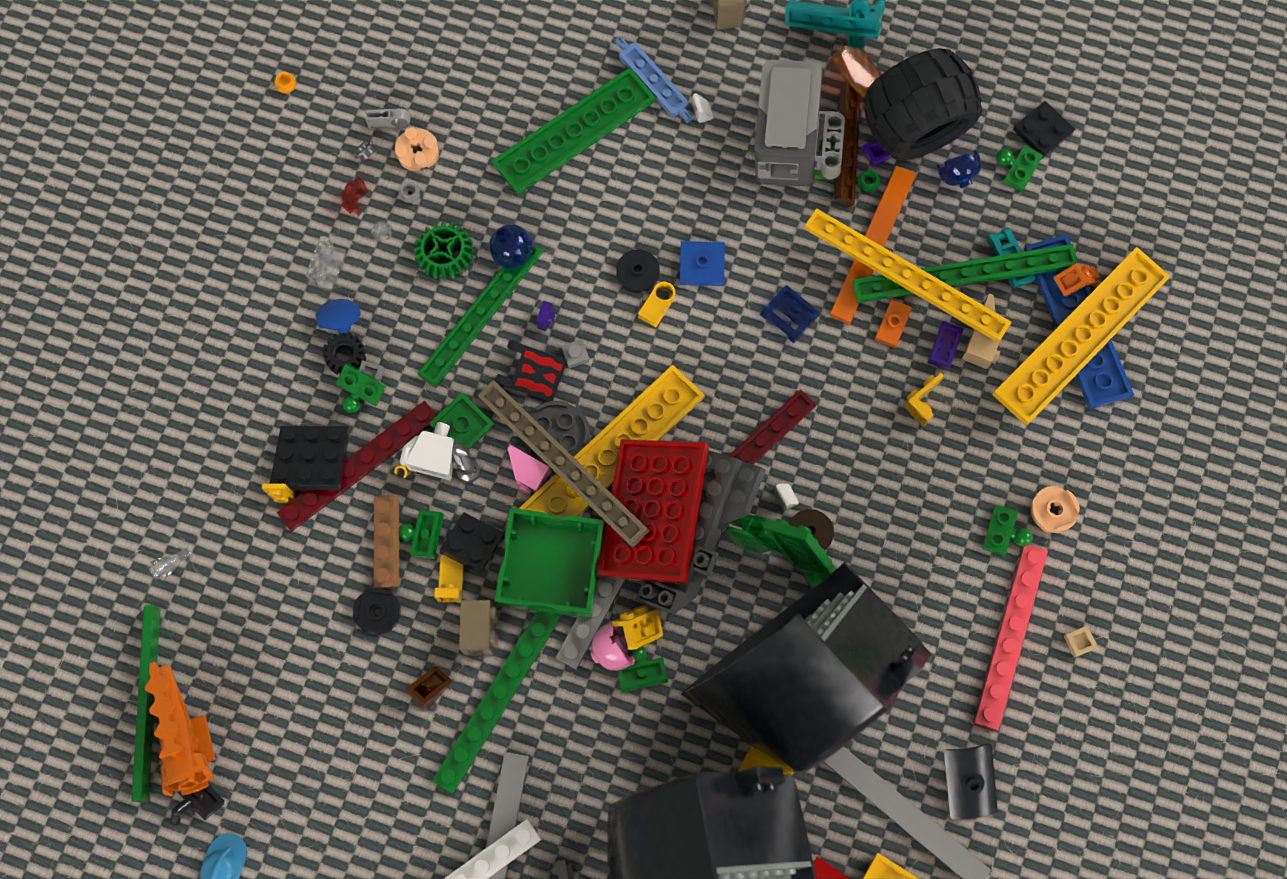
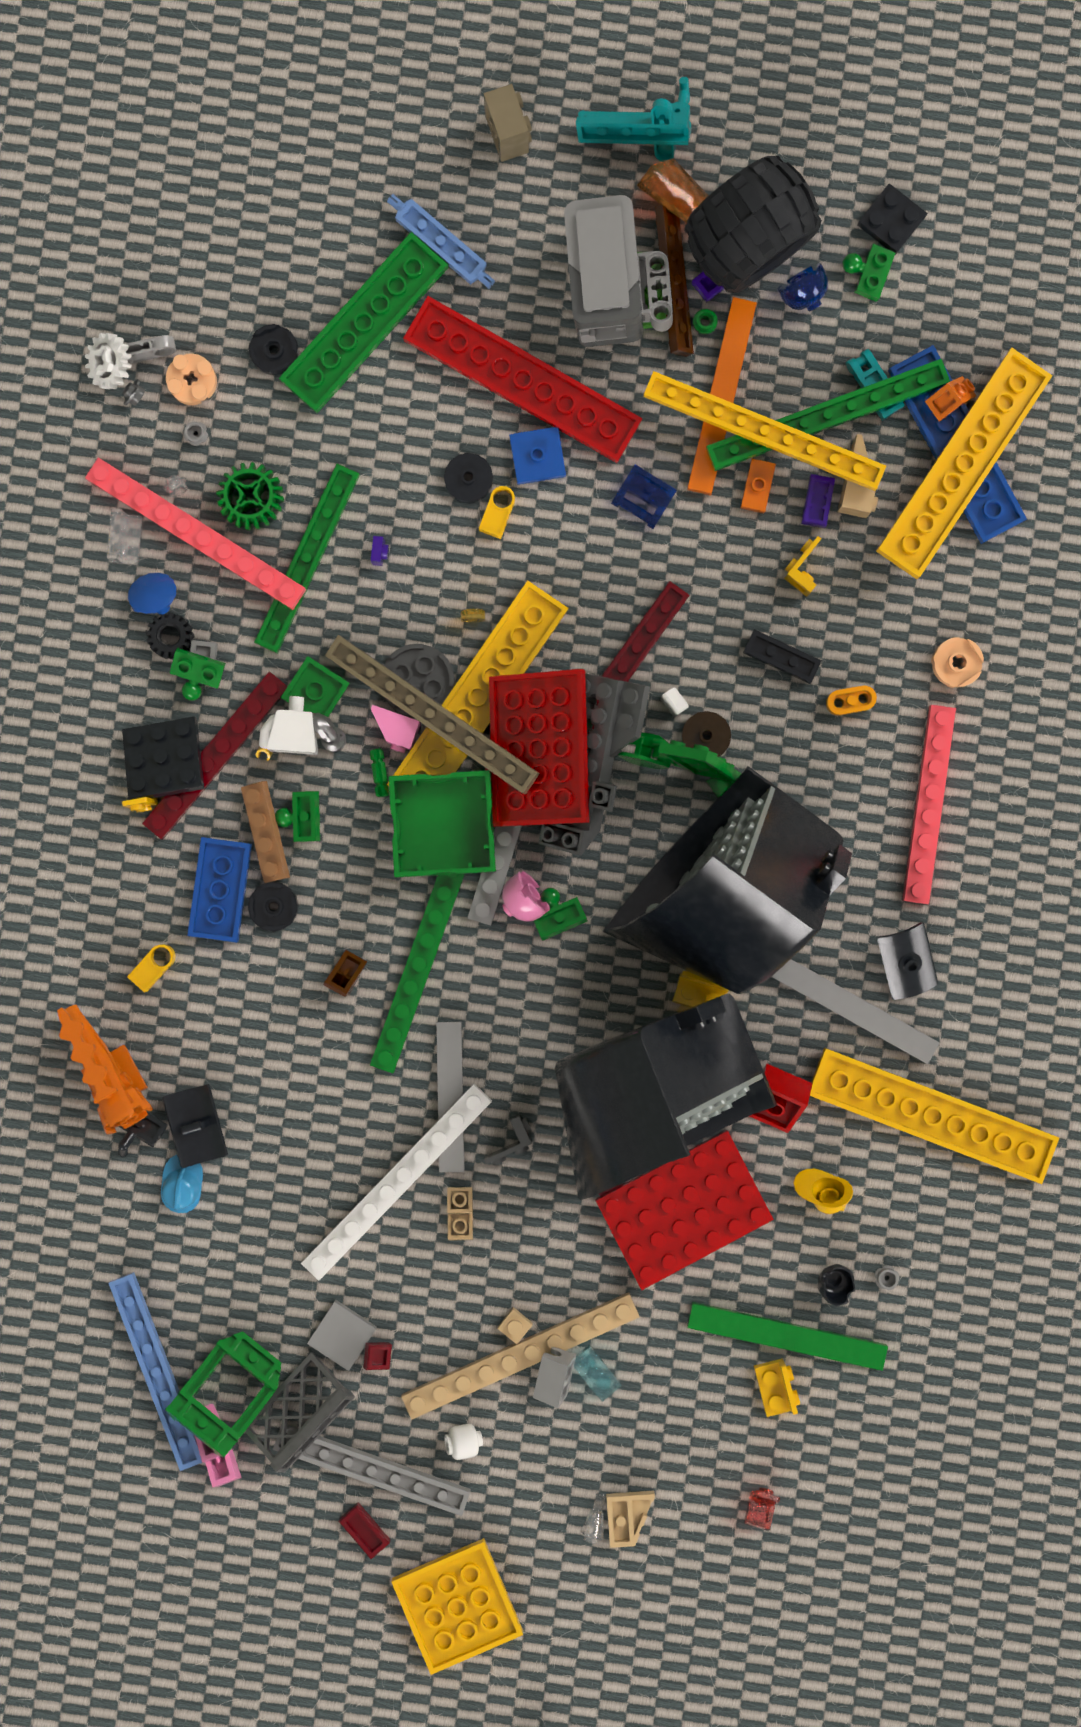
camera: 15 degrees left, 15 degrees up
(144, 719) = (61, 1047): green tile -> none
(164, 566) = (40, 903): clear cone -> none
(245, 649) = (149, 972): none -> yellow piece
(250, 807) = (195, 1125): none -> black shield
(285, 82) = (21, 325): light orange plate -> none
(331, 586) = (219, 889): none -> blue plate
(350, 121) = (108, 361): none -> white gear
(352, 194) = (132, 447): clear red bracket -> none
(390, 274) = (195, 533): none -> coral plate
(450, 581) = (341, 858): yellow bracket -> none
(472, 542) = (355, 816): black plate -> none
(477, 627) = (382, 905): dark tan brick -> none
(489, 129) = (264, 341): none -> black plate
(503, 507) = (379, 772): none -> green axle
(511, 246) = (323, 478): clear blue cylinder -> none
(536, 372) = (382, 617): flag -> none
(575, 353) = (419, 586): light grey plate -> none
(617, 386) = (473, 615): none -> clear yellow tile
(640, 626) = (548, 871): yellow bracket -> none
(701, 108) = (502, 267): white slope -> none
(702, 200) = (522, 379): none -> red plate
(892, 474) = (782, 656): none -> black plate
(949, 525) = (850, 700): none -> light orange plate
(1001, 530) = (905, 695): green plate -> none
(1080, 641) = (1001, 797): tan plate -> none

